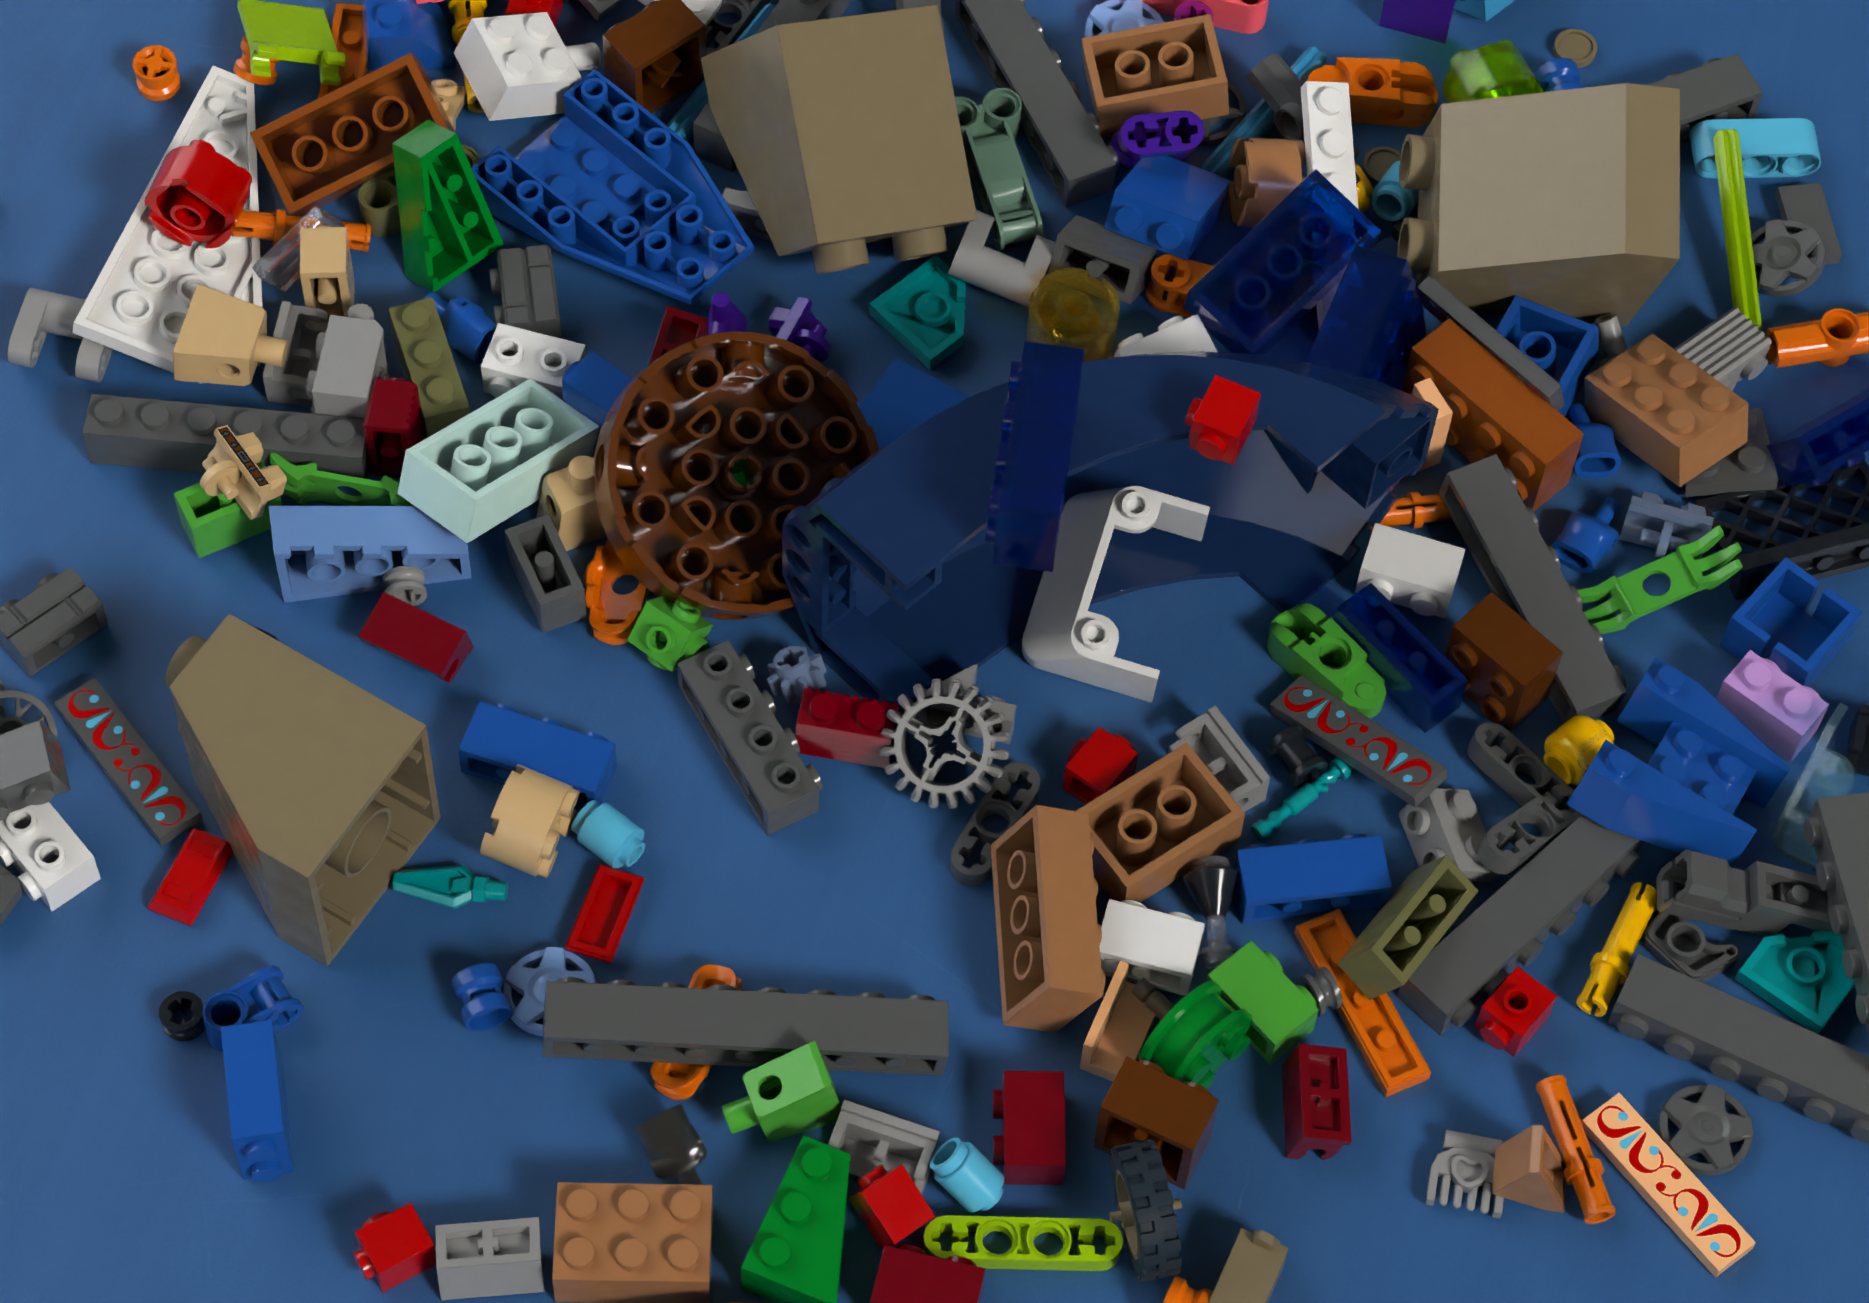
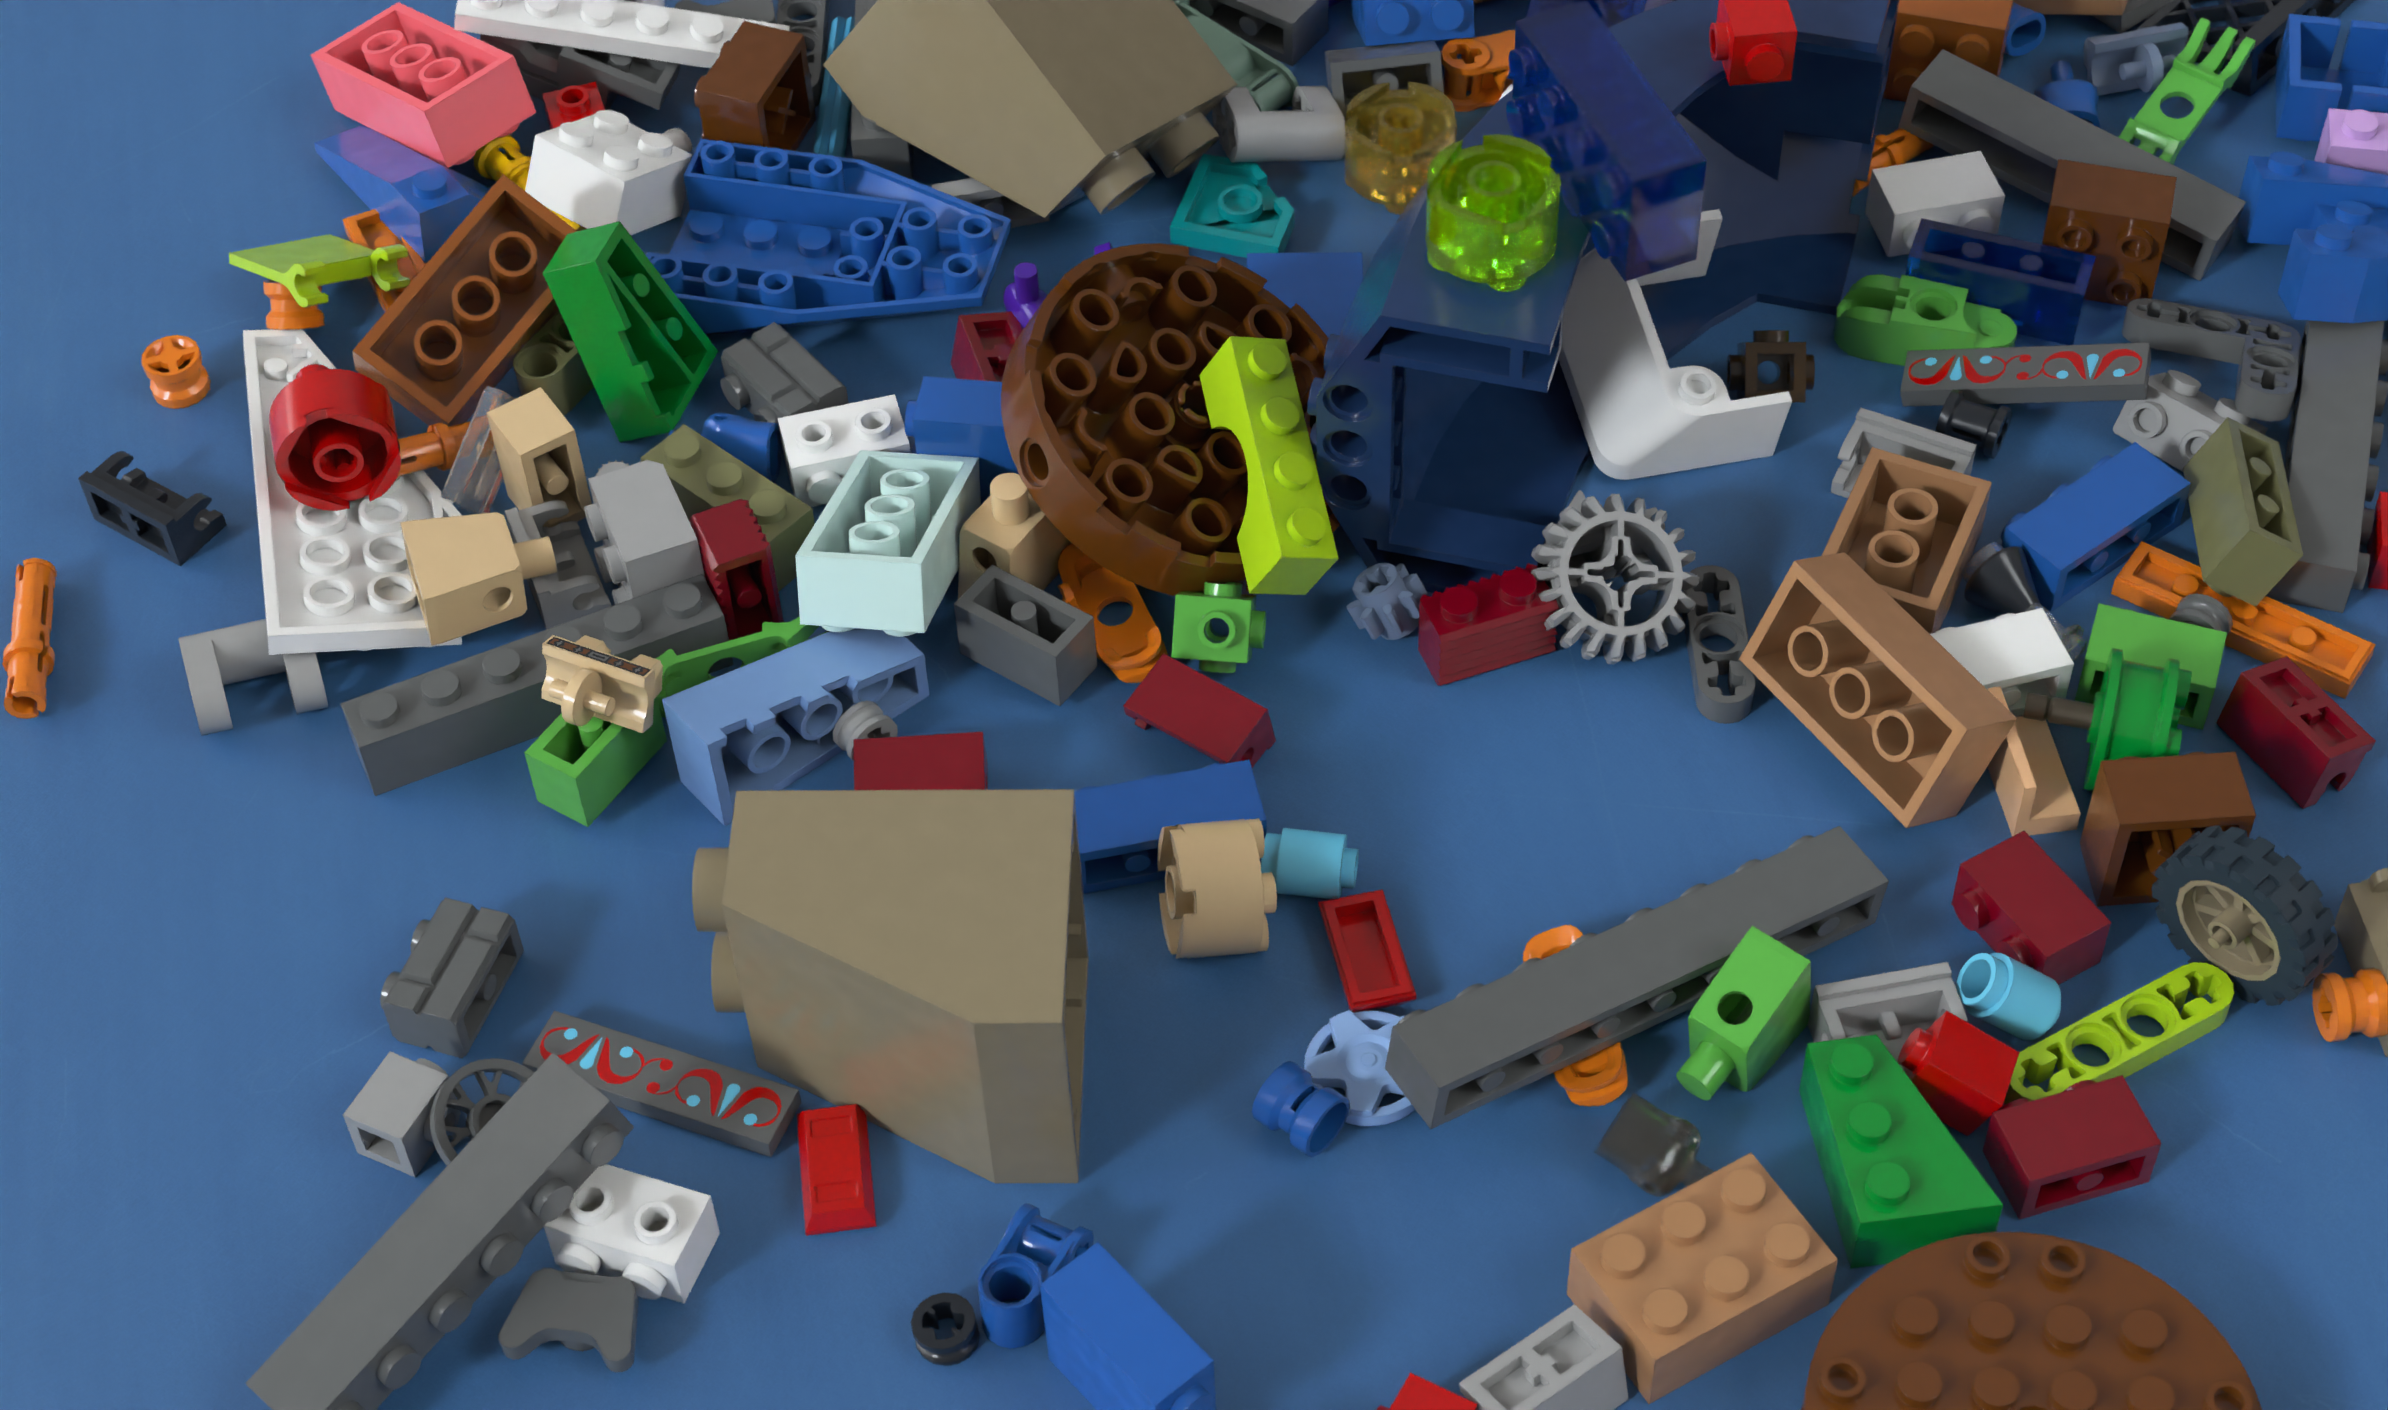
camera: 25 degrees left, 10 degrees down
(80, 173) = (149, 511): none -> black hinge
(448, 886) = (1159, 1016): teal piece -> none
(616, 694) = (1201, 713): none -> dark red hinge
(745, 576) = (1286, 523): none -> lime arch
(749, 736) = (1384, 689): dark grey brick -> none
(928, 469) = (1492, 211): none -> clear neon green brick
(1098, 765) = (1783, 529): red brick -> none
(1172, 651) = (1793, 366): none -> dark brown brick
(1301, 798) = (2008, 461): teal piece -> none
(1574, 747) = (2243, 277): yellow head -> none

